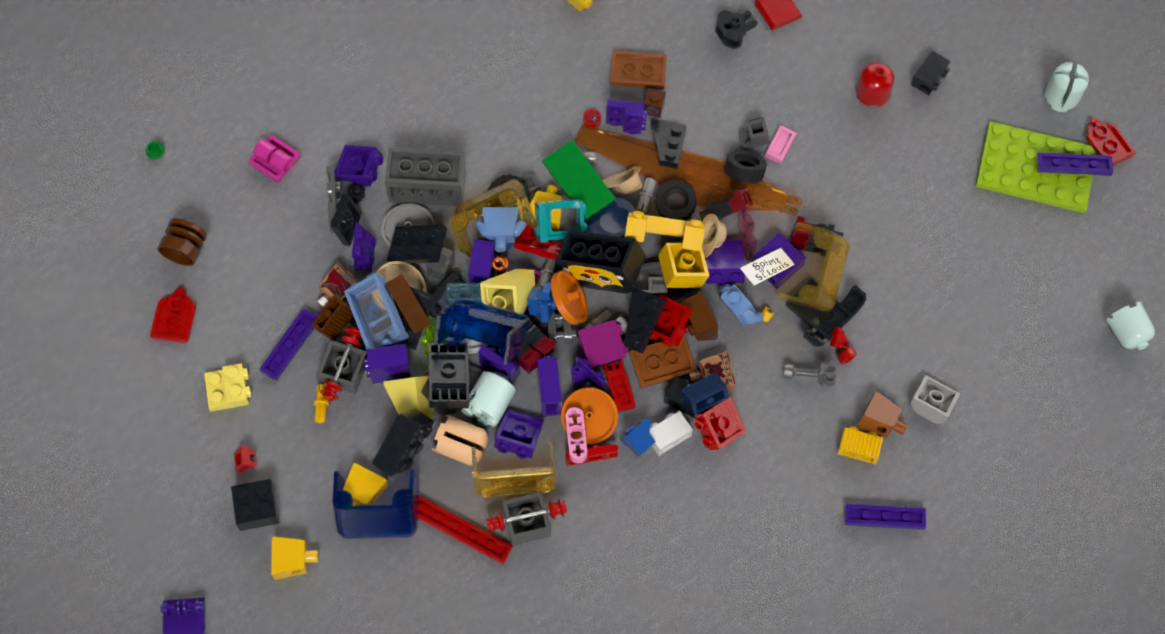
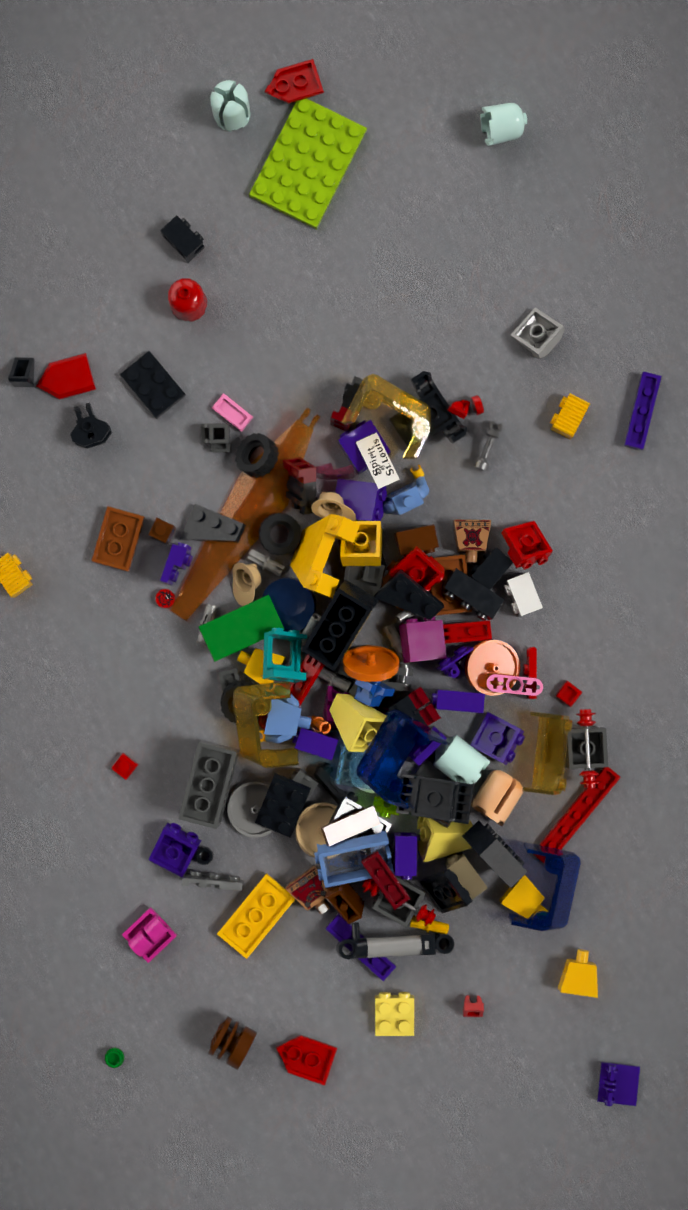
camera: 75 degrees left, 20 degrees up
(255, 504) = (522, 1003): black brick -> none
(295, 369) = (393, 946): none -> piece
(305, 246) = (256, 916): none -> yellow plate
(345, 219) = (239, 872): black plate -> none
(355, 407) = (446, 891): none -> black plate
(360, 342) = (385, 880): none -> dark red tile
(363, 249) = (273, 859): dark purple hinge -> none
(375, 423) = (466, 874): none -> dark tan piece
(428, 112) = (124, 766): none -> red plate
(578, 497) = (568, 693): none -> red tile
(638, 437) = (524, 625): blue brick -> none
(657, 379) = (472, 595): none -> black brick
(704, 393) = (499, 553): dark blue brick -> none
(788, 74) = (152, 384): none -> black plate
(881, 417) = (547, 388): torso -> none
(1074, 164) = (318, 124): dark purple plate -> none

